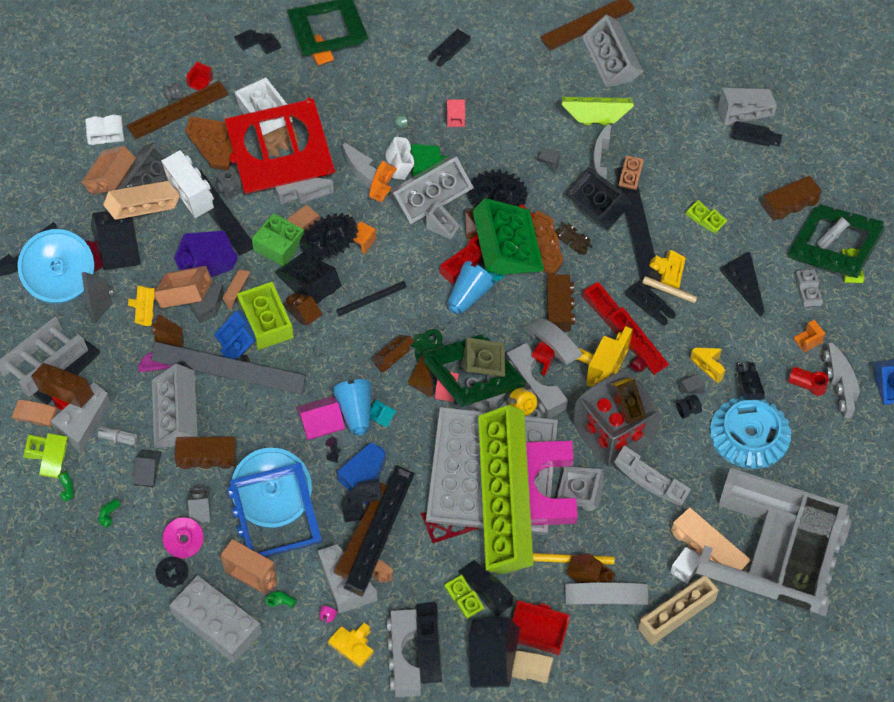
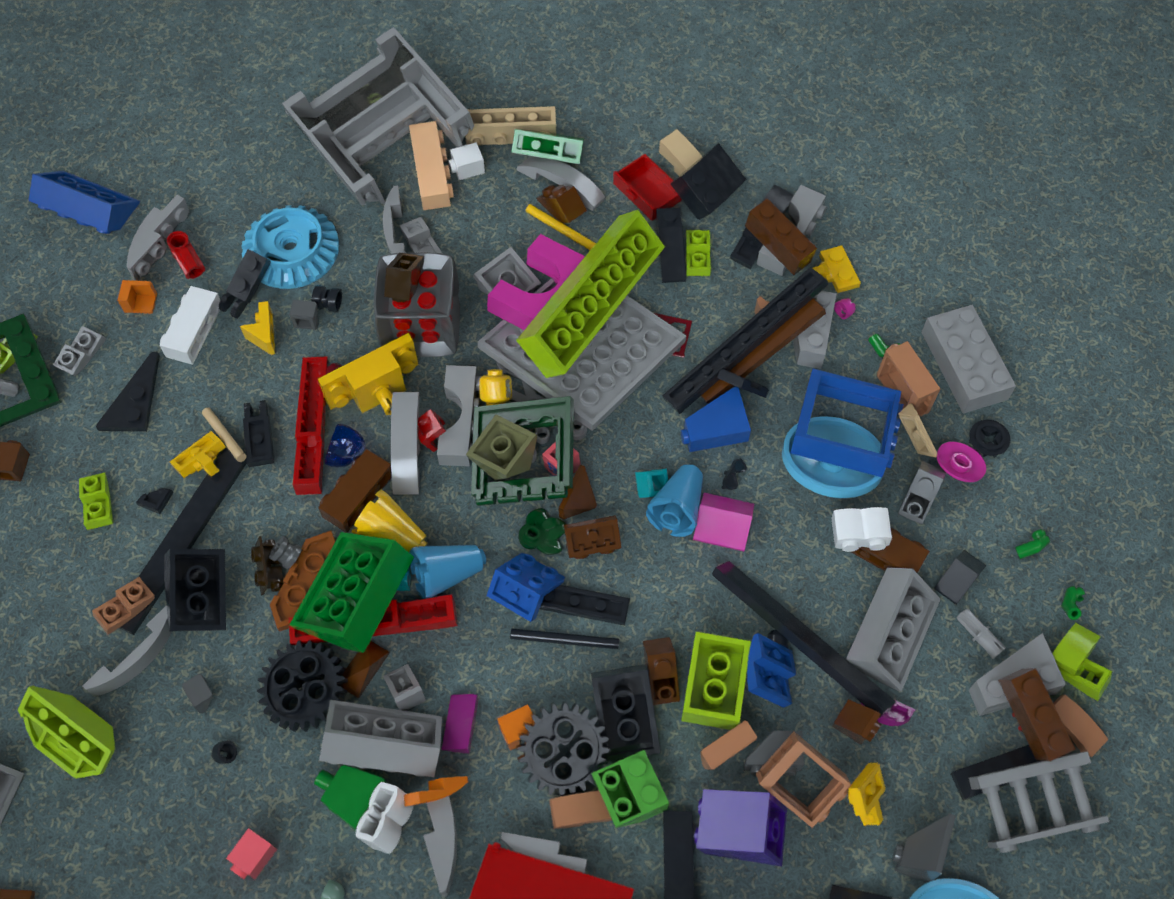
camera: 145 degrees left, 5 degrees up
(220, 535) = (917, 431): none -> tan slope
(225, 439) = (861, 528): none -> white brick
(380, 320) = (587, 604): none -> black tile
(397, 226) = (460, 723): none -> magenta slope
(403, 616) = (780, 236): none -> reddish brown brick
(414, 309) = (523, 584): none -> blue bracket
(511, 142) = (224, 746): none -> black hinge
(519, 291) = (389, 521): none -> yellow cone
(568, 246) = (285, 552): none -> dark grey wheel
(586, 318) = (344, 446): none -> clear blue helmet
(629, 609) = (548, 146): none -> slope
(672, 463) = (392, 210): none -> light grey slope
(673, 236) = (155, 500): none -> black tile
(757, 338) = (190, 325): none -> white brick

